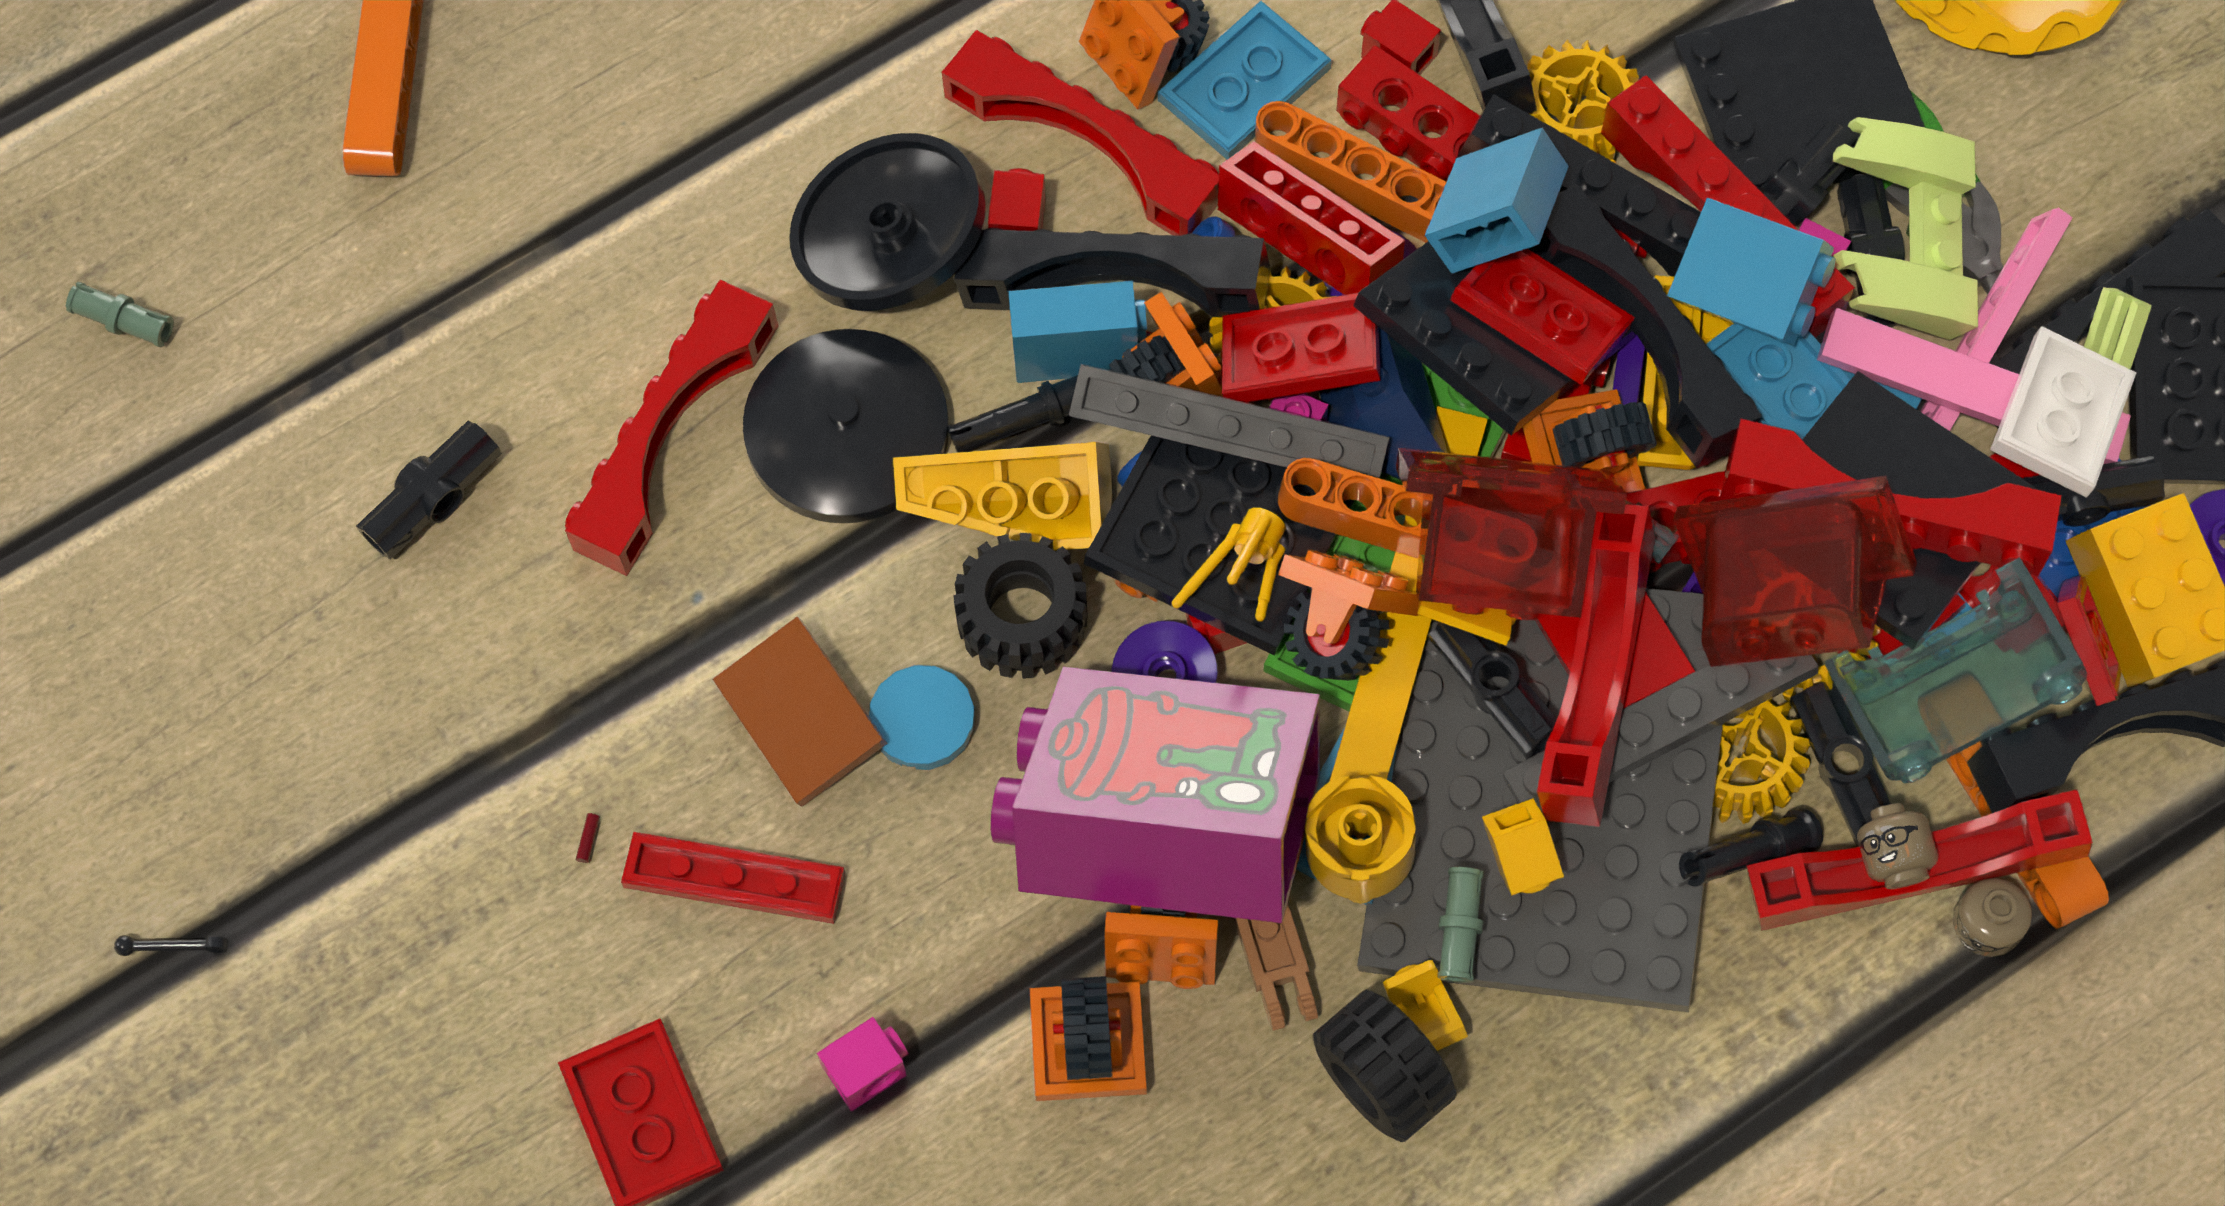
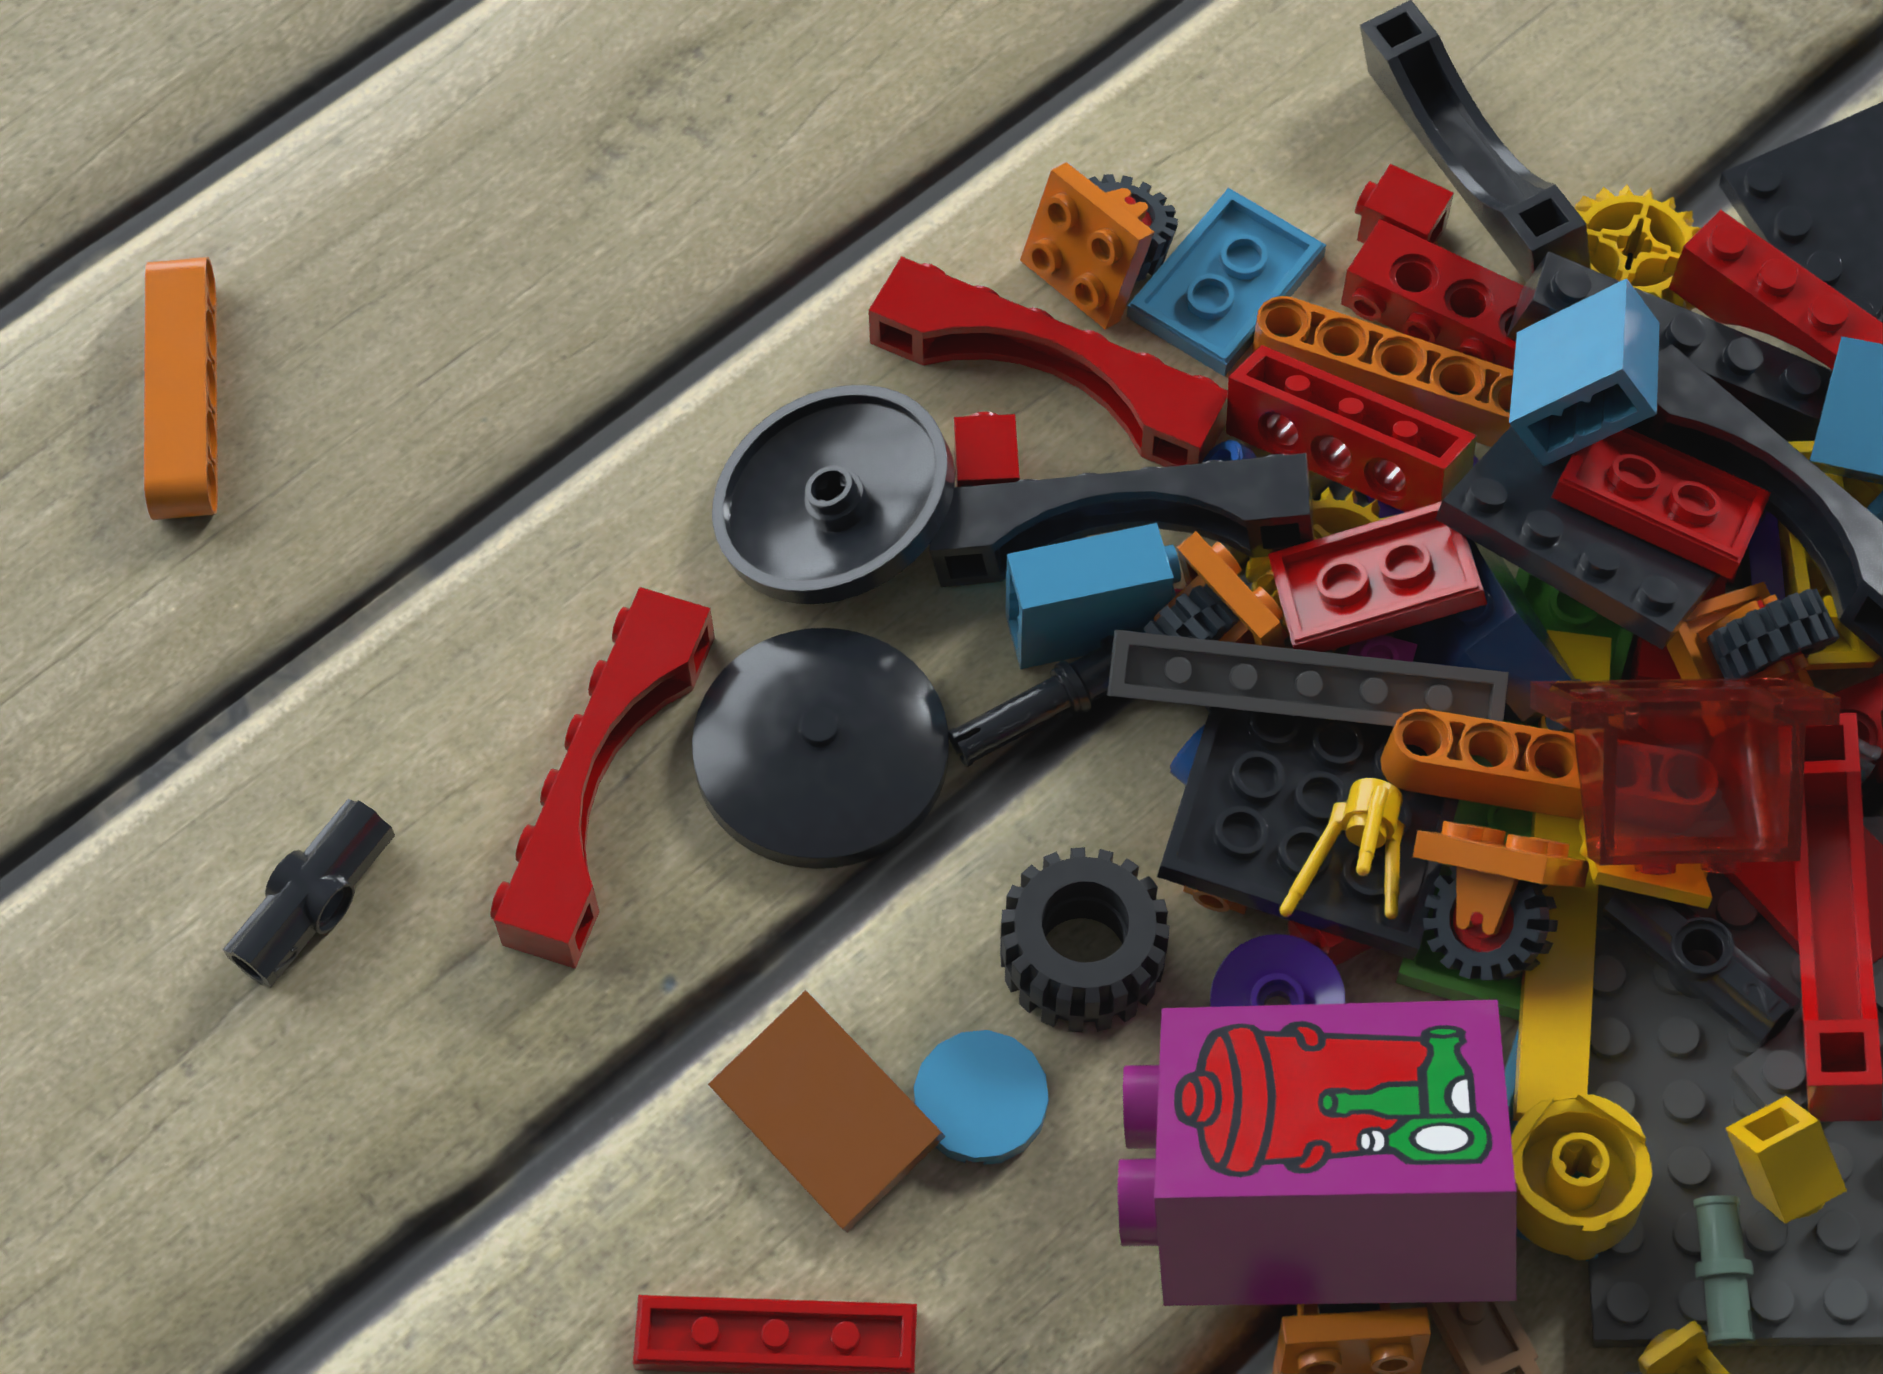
camera: 10 degrees left, 5 degrees down
(587, 838) = (578, 1311): dark red piece -> none
(1012, 491) = (1046, 800): yellow wedge -> none

